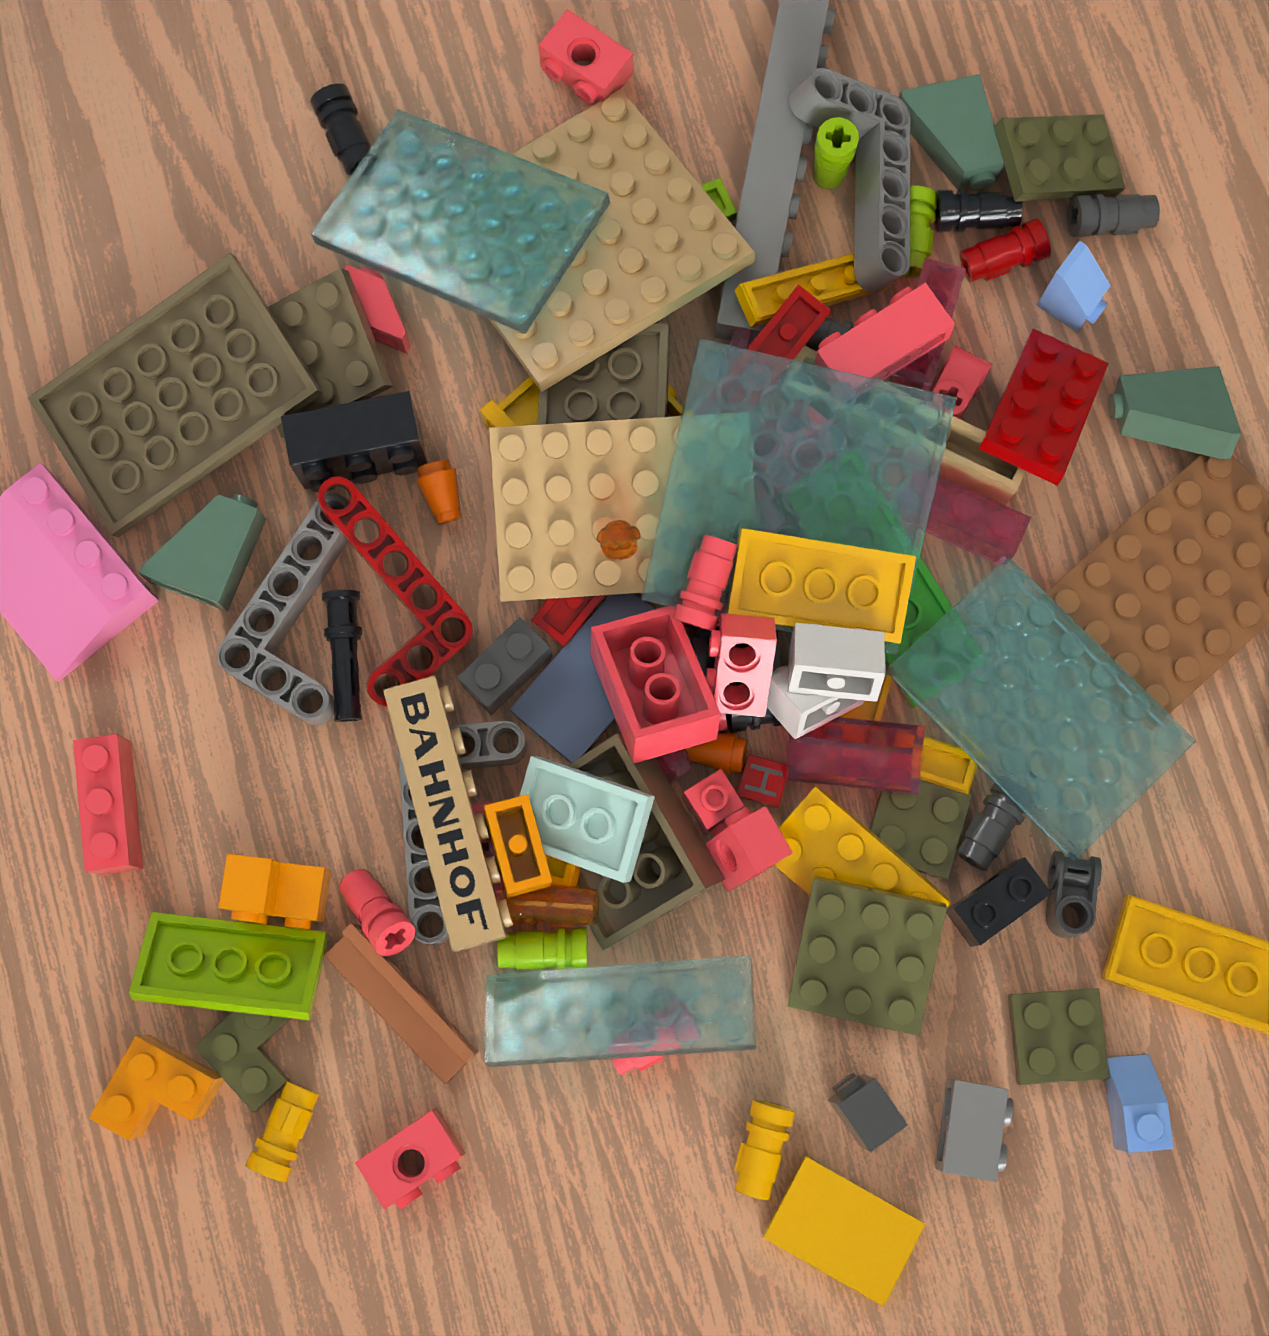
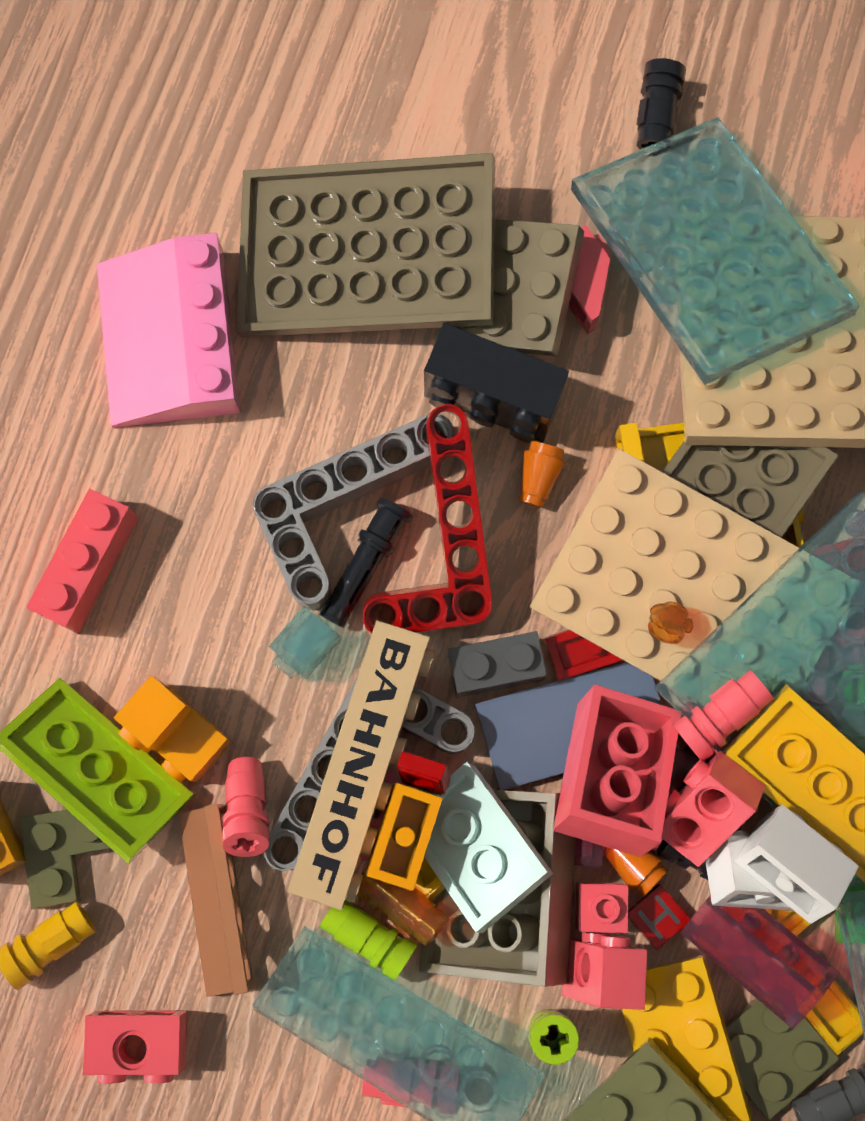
camera: 35 degrees right, 0 degrees up
(209, 552) = (308, 399): sand green slope -> none
(337, 752) = (303, 644): none -> clear light blue brick
(501, 786) = (423, 773): none -> red tile
(750, 922) = (564, 1041): none -> lime axle

